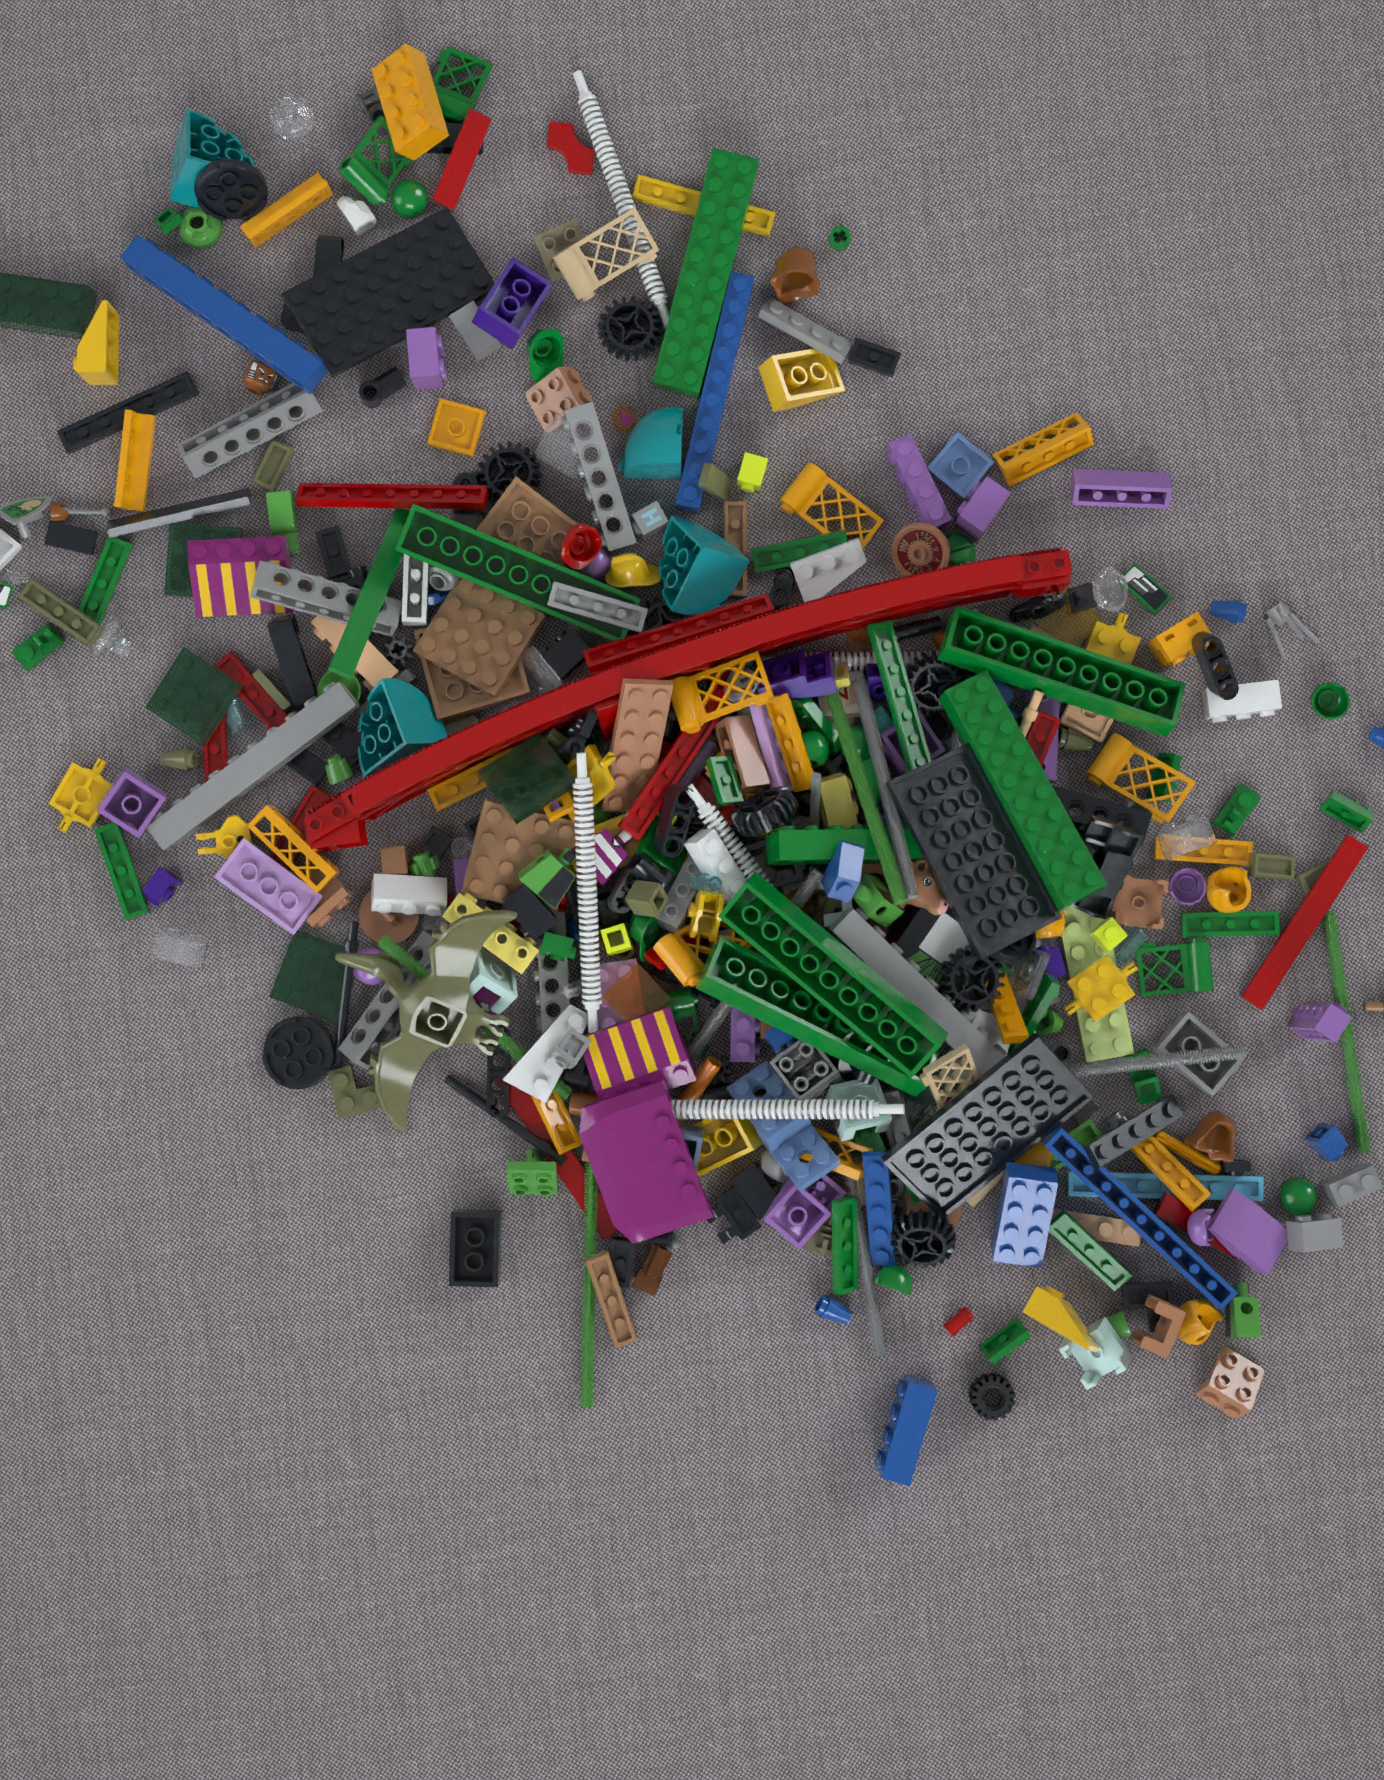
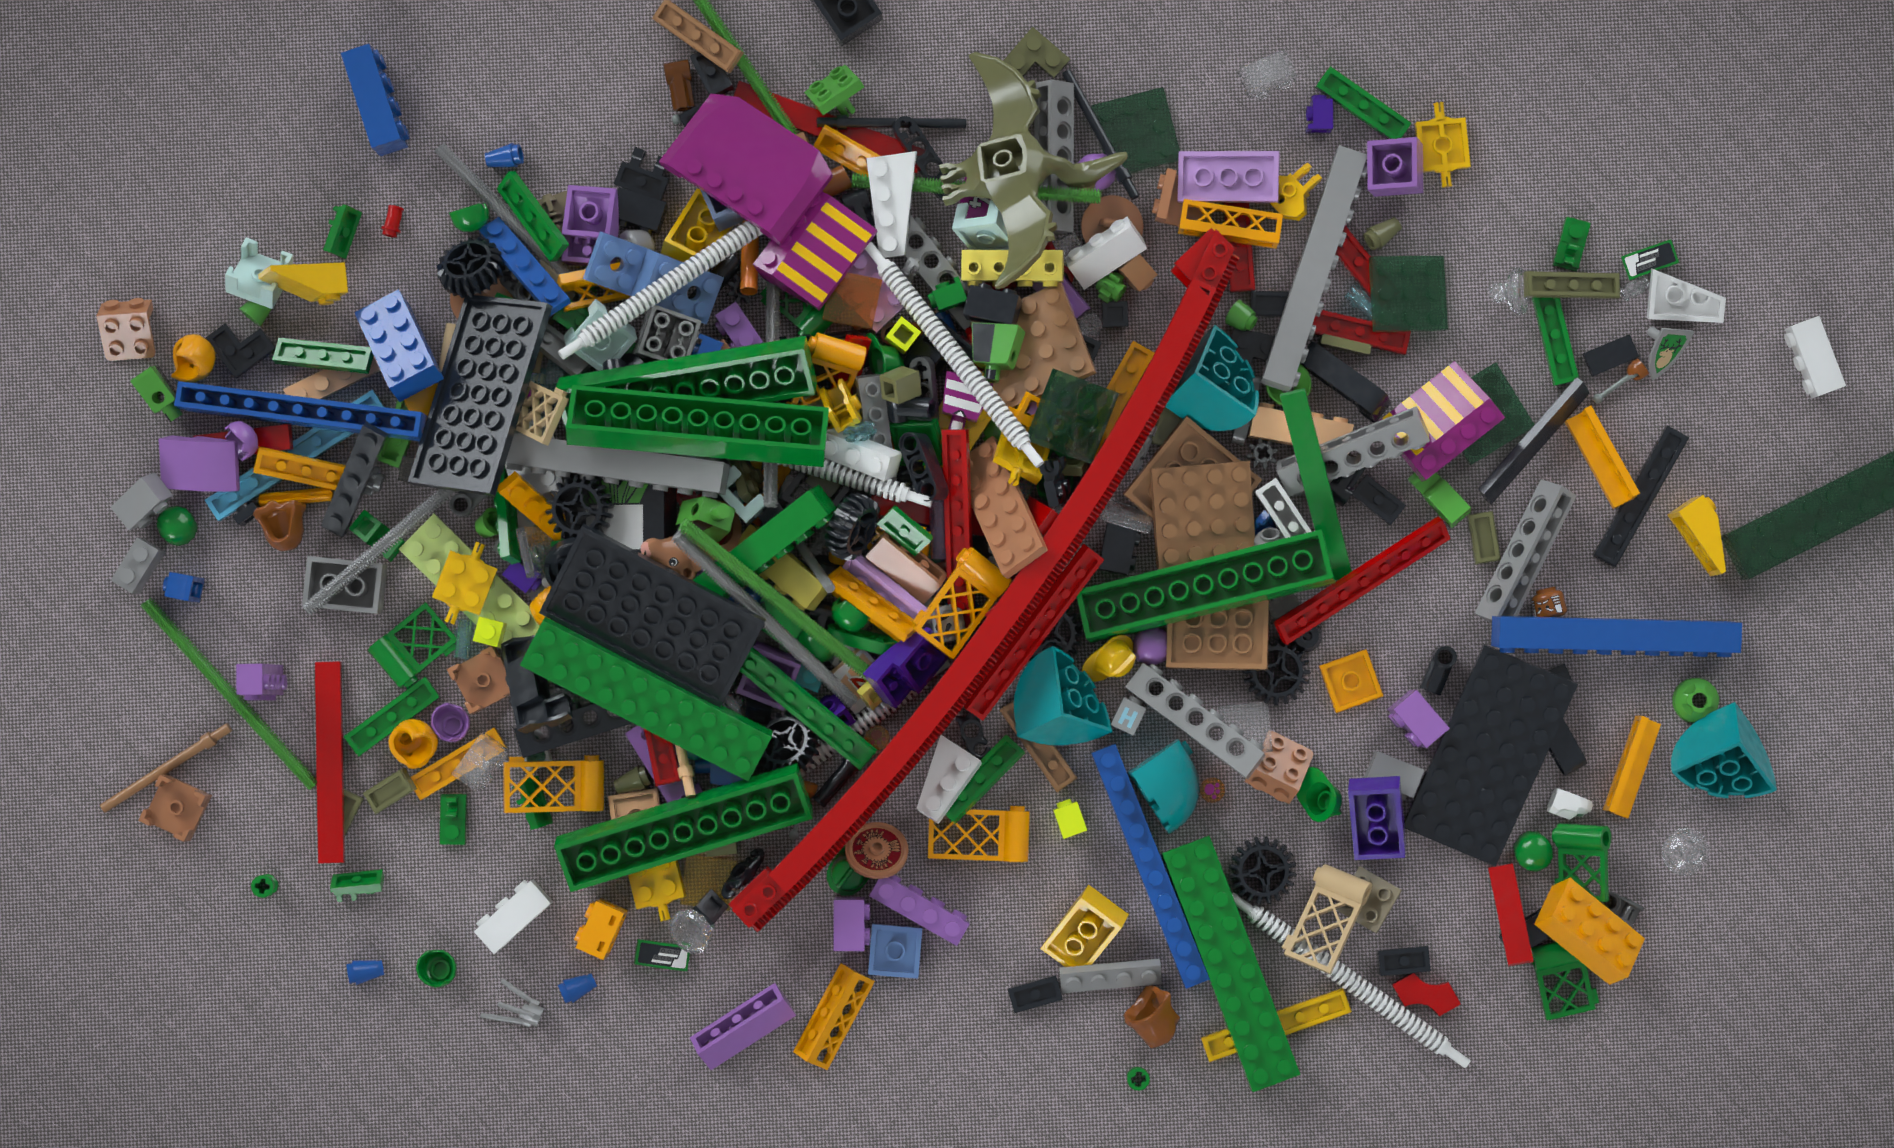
camera: 140 degrees right, 0 degrees up
(168, 220) = (1725, 685): green tile -> none
(231, 190) = (1687, 746): black tile -> none
(298, 1053) = (1105, 57): black tile -> none
(569, 184) = (1403, 960): none -> black plate
(570, 1049) = (876, 216): light grey bracket -> none
(580, 546) = (1169, 647): red hat -> none
(597, 606) = (1117, 604): light grey plate -> none
(715, 481) = (1094, 786): olive tile -> none
(844, 871) = (748, 518): slope -> none
(996, 1411) = (314, 164): black tyre -> none
(1166, 1328) = (213, 331): nougat panel -> none
(1207, 658) = (565, 927): black beam -> none

